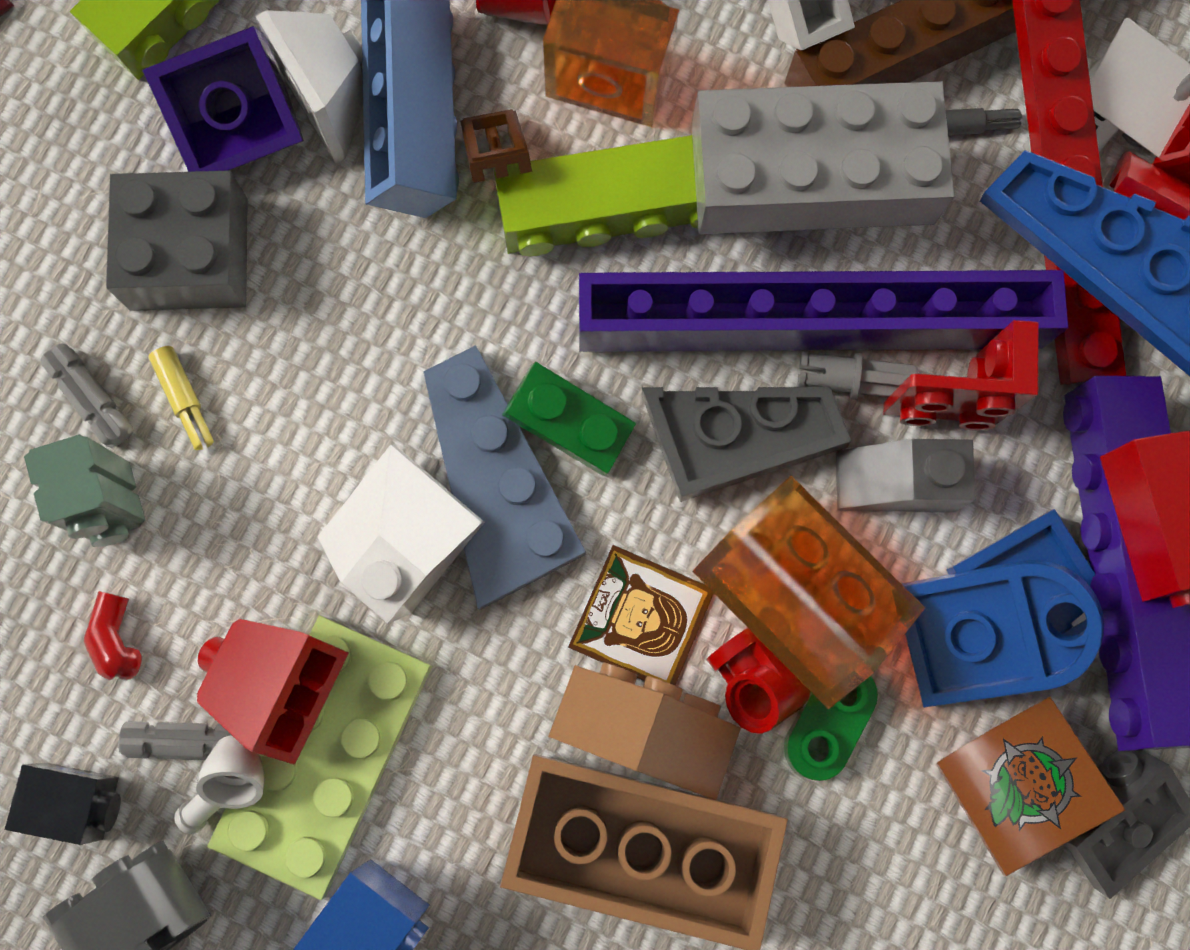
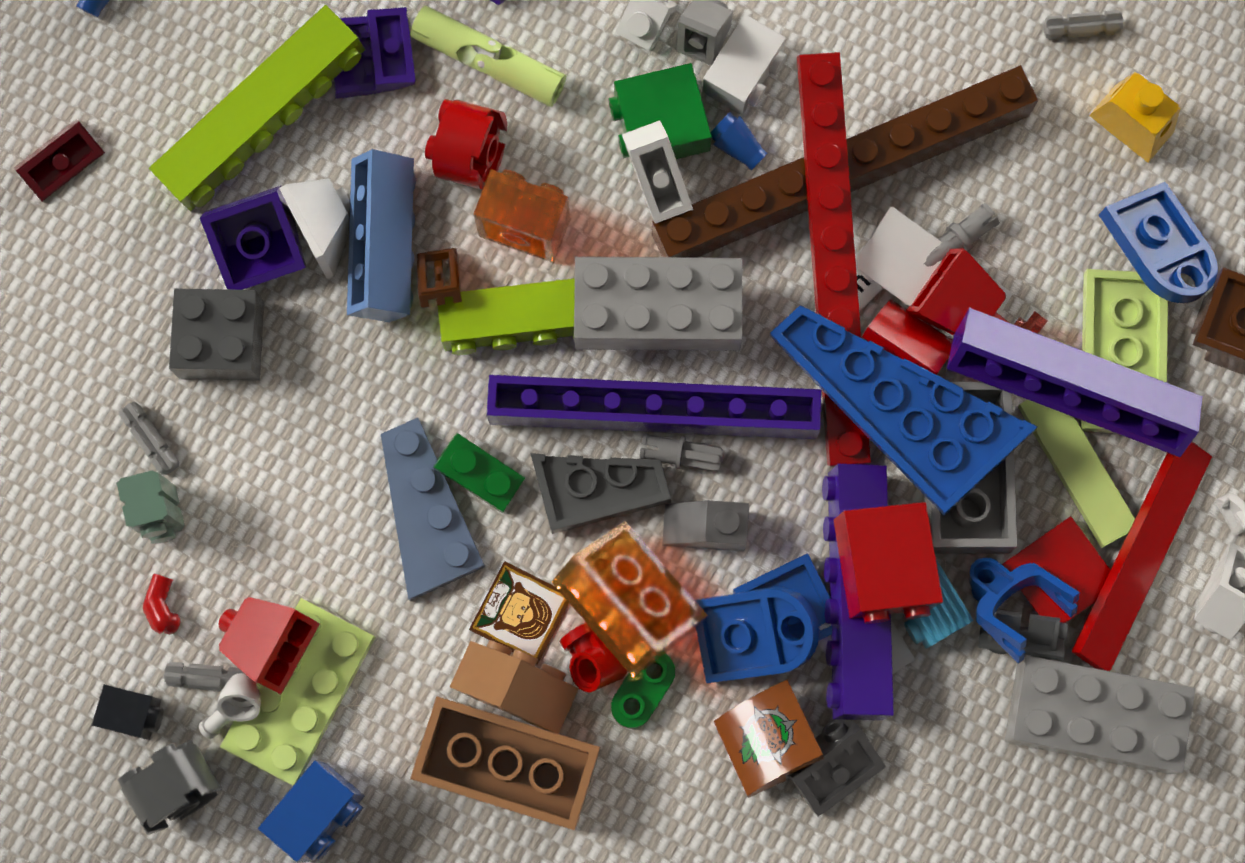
camera: 10 degrees right, 0 degrees up
(180, 393) = (212, 441): light yellow pin -> none
(396, 535) = (356, 546): white slope -> none
(974, 120) = (776, 271): dark grey pin -> none
(995, 386) = (760, 478): red bracket -> none

